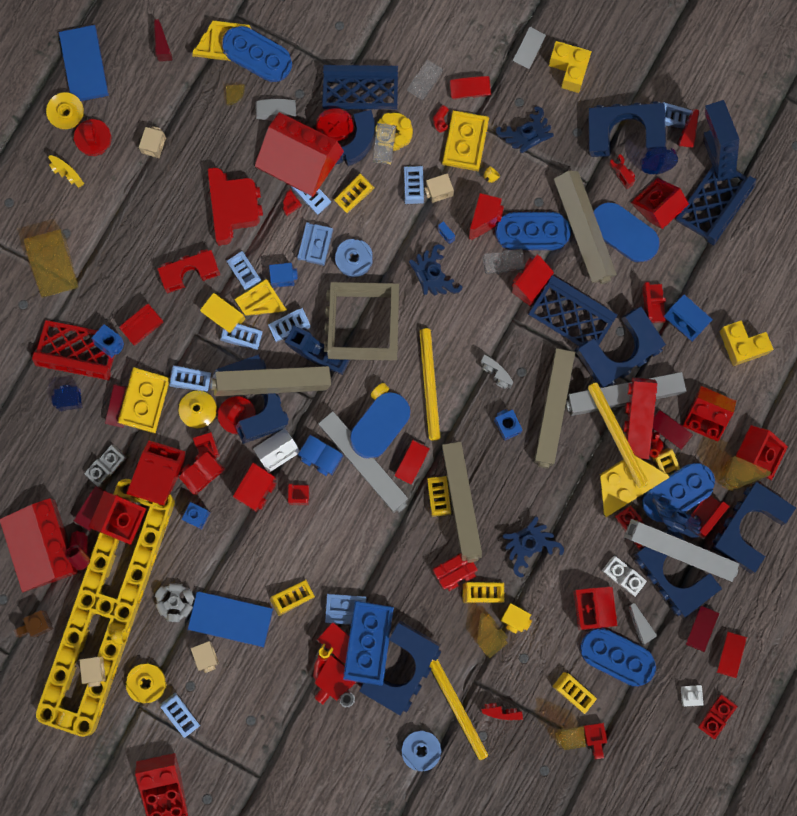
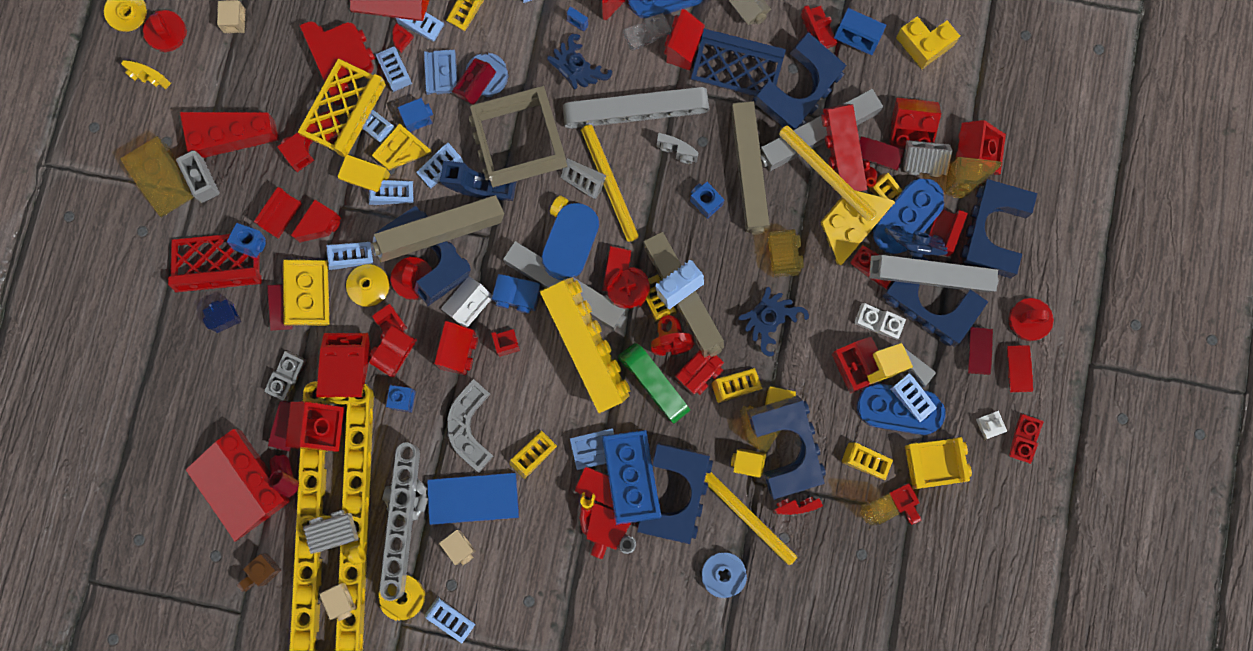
camera: 20 degrees left, 0 degrees up
(83, 273) = (197, 176): none -> light grey brick
(104, 611) = (330, 532): none -> light grey brick
(116, 241) = (226, 131): none -> red wedge
(156, 626) = (393, 530): none -> light grey beam
(170, 343) = (316, 223): none -> red slope
(236, 260) = (356, 119): none -> yellow fence
(237, 556) = (459, 426): none -> light grey plate
(280, 242) = (400, 82): none -> light blue slope
(341, 261) = (474, 81): none -> dark red slope
(365, 519) = (585, 344): none -> yellow brick
(413, 568) = (654, 382): none -> green beam
(416, 481) = (628, 288): none -> red tile
(417, 377) = (591, 175): none -> light grey slope
(439, 537) = (673, 340): none -> red tile
(459, 493) = (679, 284): none -> light blue brick
(472, 325) = (635, 107): none -> light grey beam
(472, 662) = (748, 462): none -> yellow brick
(517, 684) = (805, 470): none -> dark blue arch
(560, 491) = (784, 253): none -> clear yellow brick
(619, 615) = (890, 363): none -> yellow panel
(631, 633) = (908, 379): none -> light blue slope
(634, 713) = (938, 463): none -> yellow panel
(710, 447) = (926, 158): none -> light grey brick
(756, 615) = (1031, 319): none -> red tile

